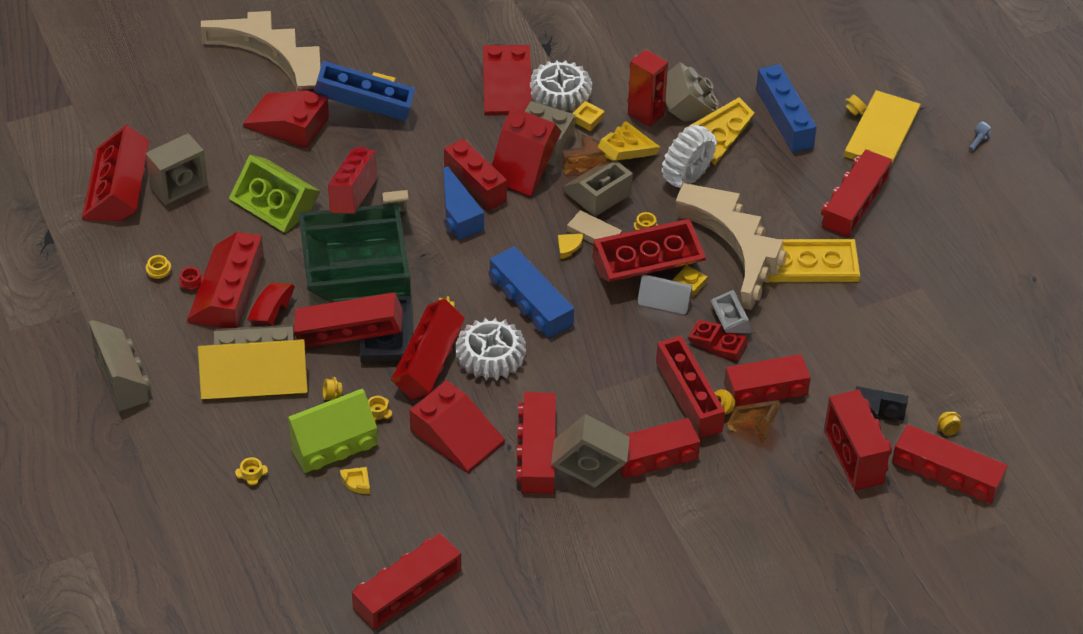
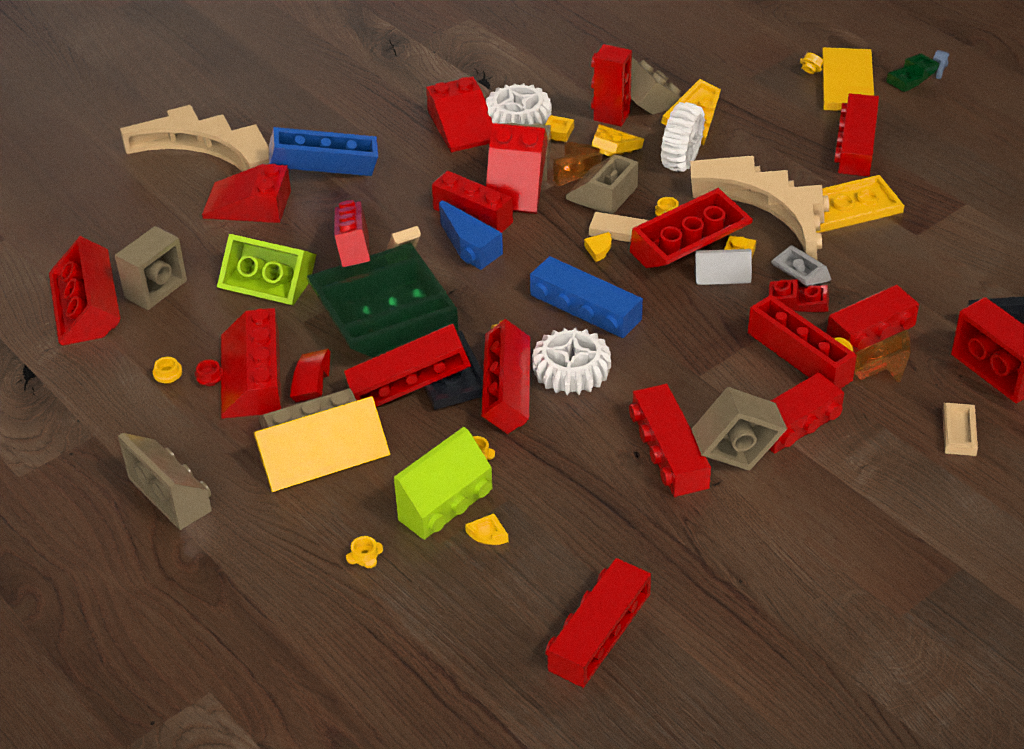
camera: 15 degrees left, 5 degrees down
(331, 389) = (417, 444): yellow plate -> none
(455, 426) = (571, 447): red slope -> none
(786, 108) = (749, 79): blue brick -> none
(789, 500) = (960, 429): none -> tan tile
(952, 137) = (913, 73): none -> dark green slope

